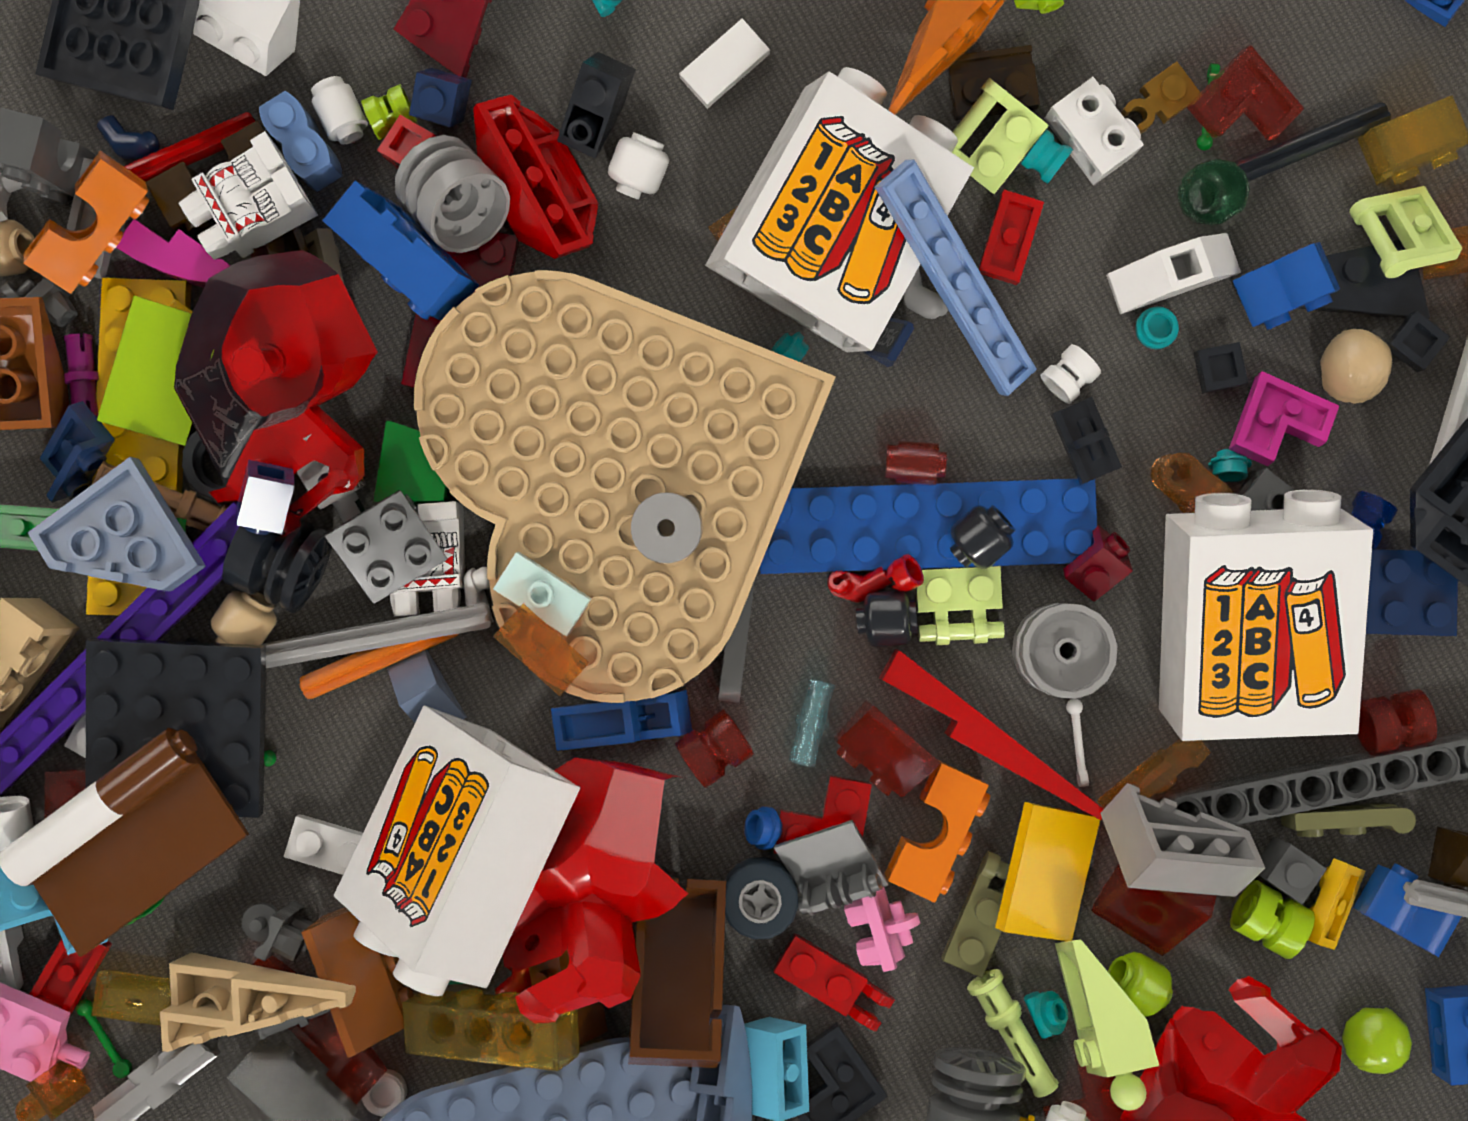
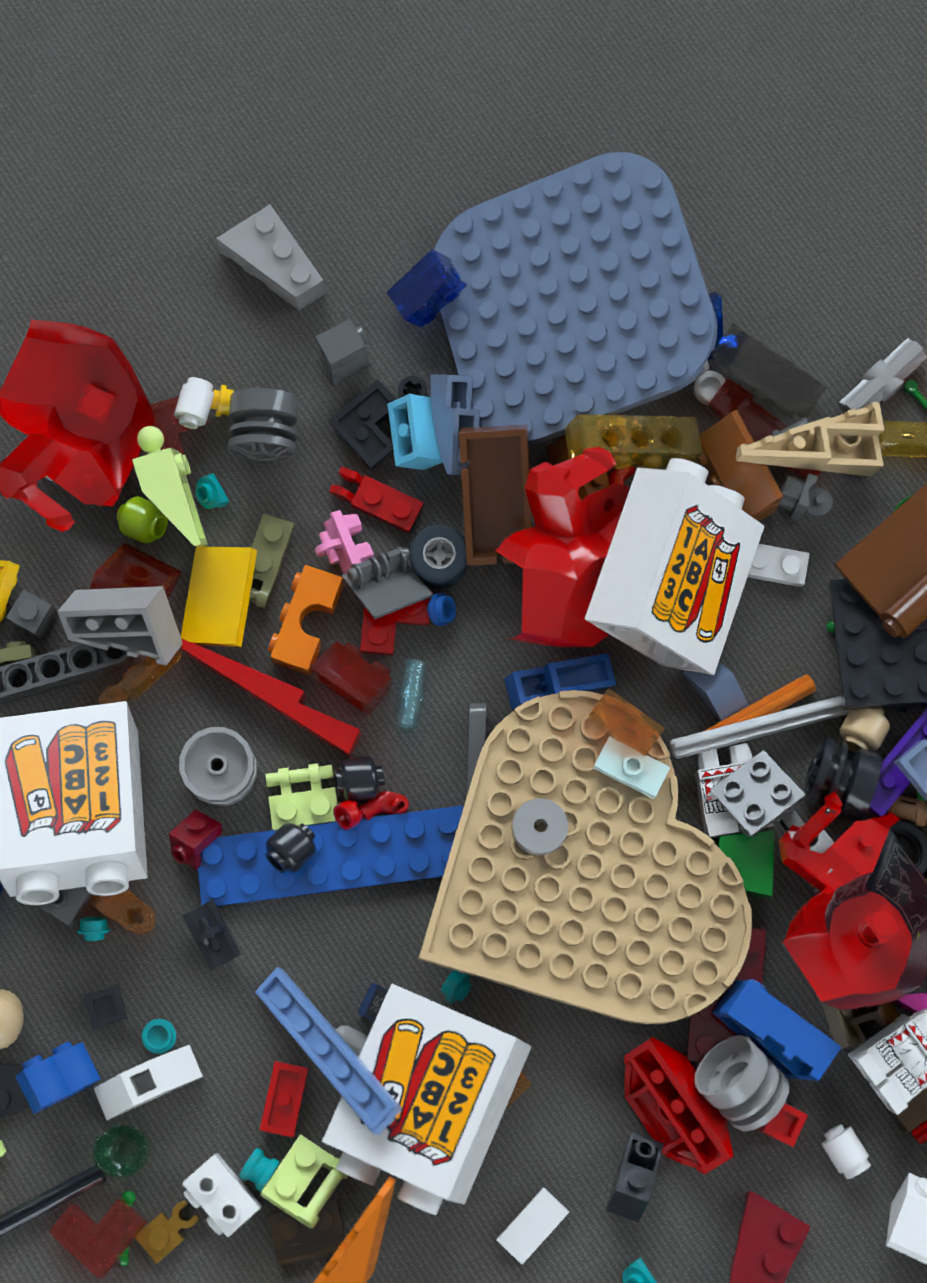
camera: 175 degrees right, 10 degrees down
(264, 498) = (854, 818): brick -> none
(300, 141) = (879, 1130): medium blue brick -> none
(379, 110) = (810, 1149): lime wheel -> none
(440, 97) = (763, 1168): dark blue brick -> none
(474, 586) = (687, 775): white arm -> none
(638, 165) = (594, 1128): white head -> none
(714, 748) = (485, 665): clear red wheel -> none
(915, 462) = (347, 905): clear red brick -> none
(1004, 1016) = (243, 486): yellowish green pin -> none
(1070, 374) = (221, 995): white wheel -> none
(1074, 708) = (205, 723): white hinge -> none
(1276, 409) = (56, 978): dark pink plate -> none
(1278, 922) = (40, 575): lime wheel -> none

